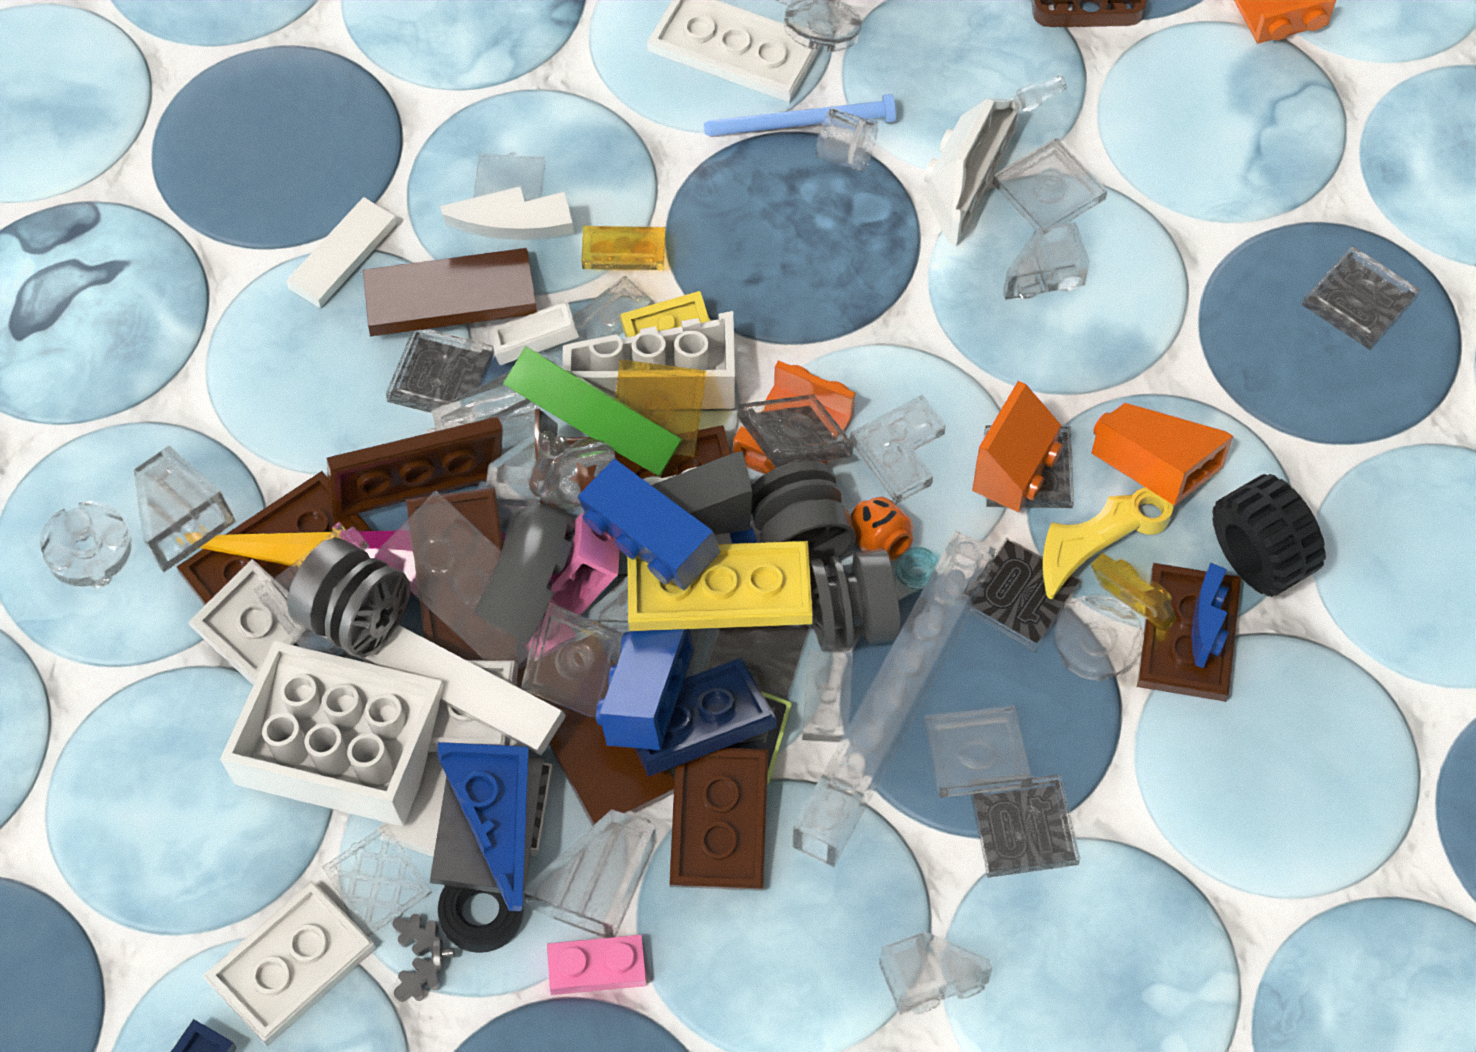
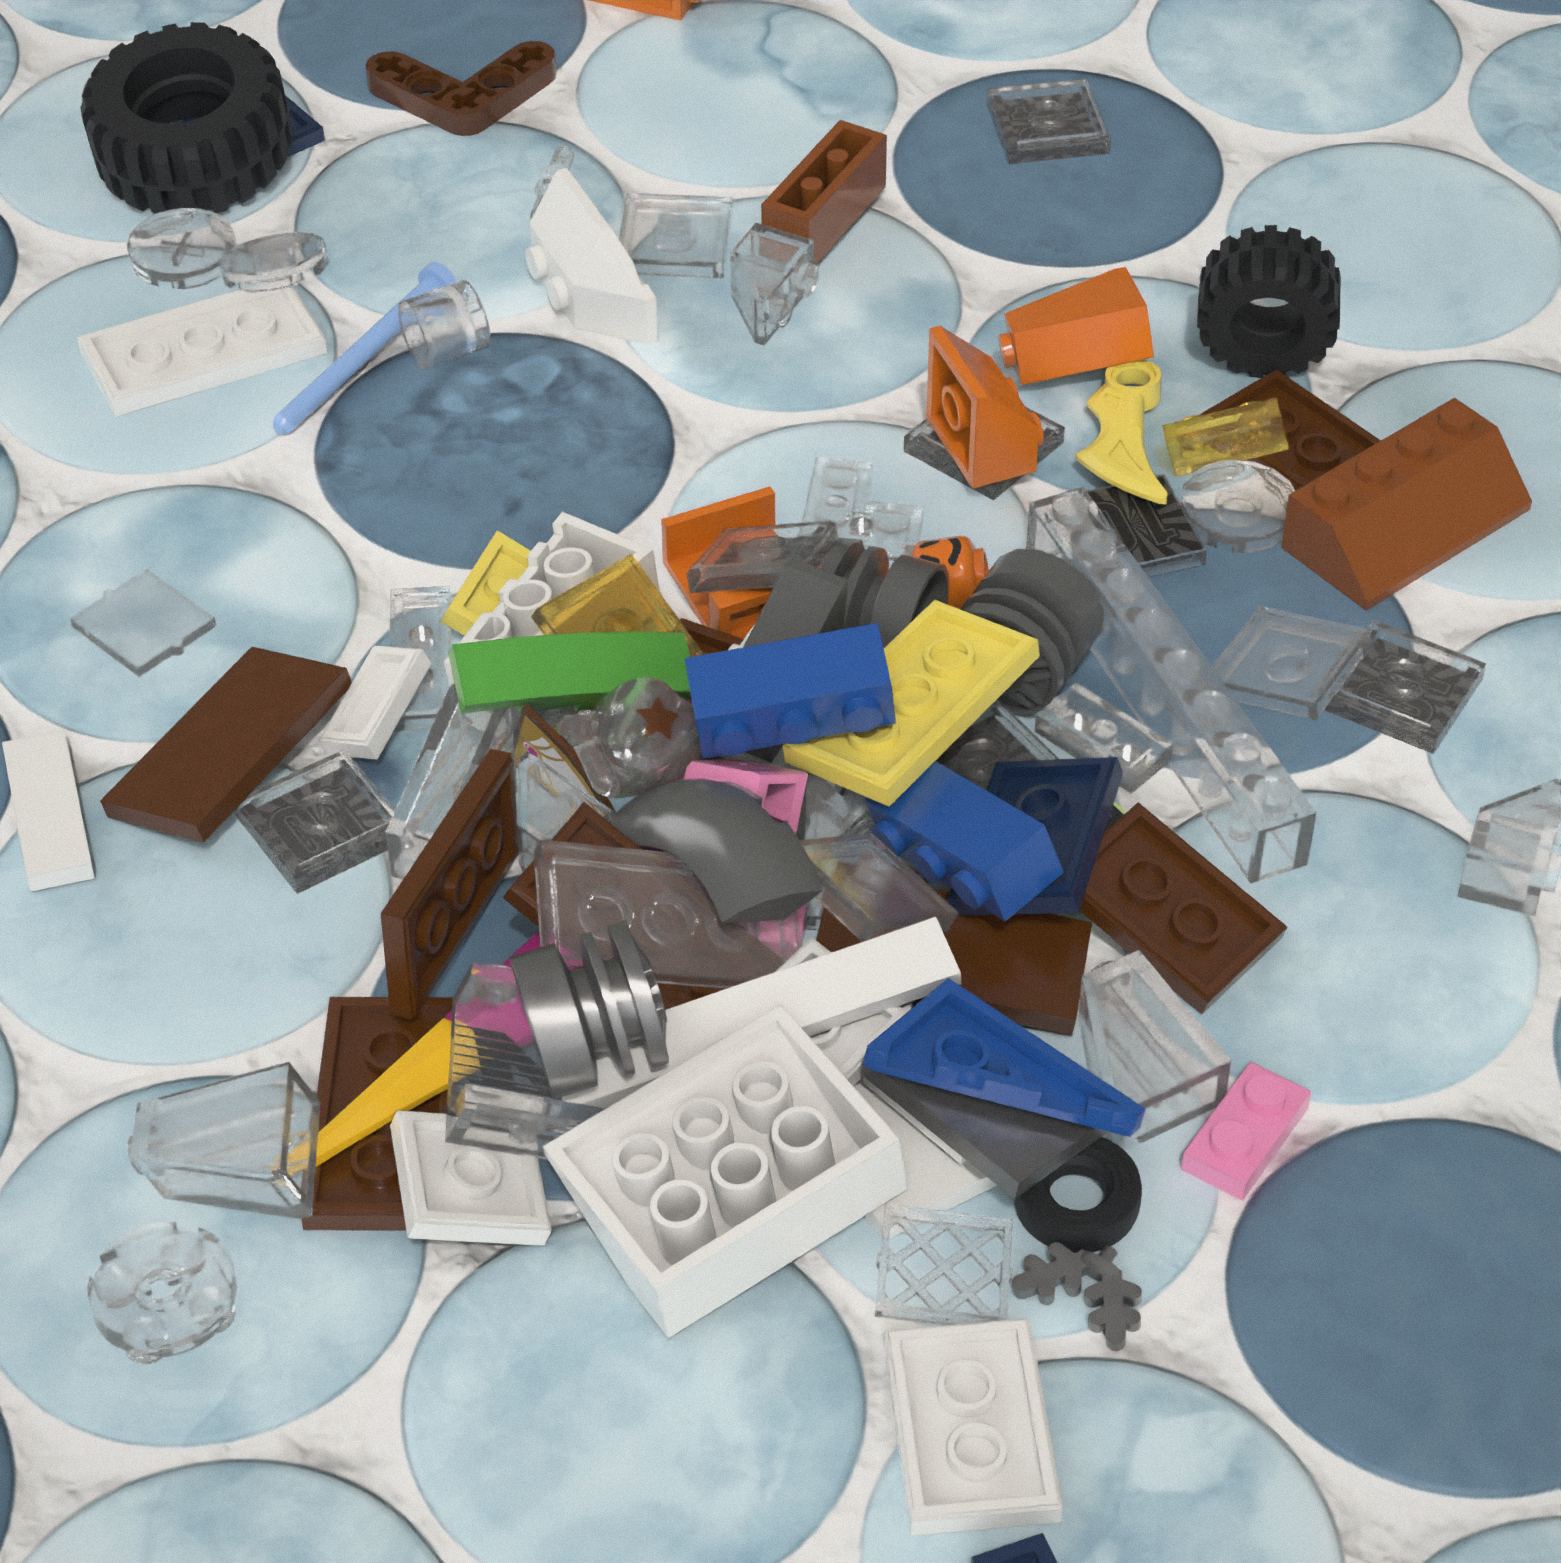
camera: 50 degrees left, 15 degrees down
(509, 217) = (200, 627): white slope -> none
(623, 248) = (353, 570): clear yellow plate -> none
(1146, 235) = (830, 187): none -> dark orange brick
(1179, 729) = (1405, 504): none -> dark orange slope
(1208, 617) = (1313, 406): blue slope -> none

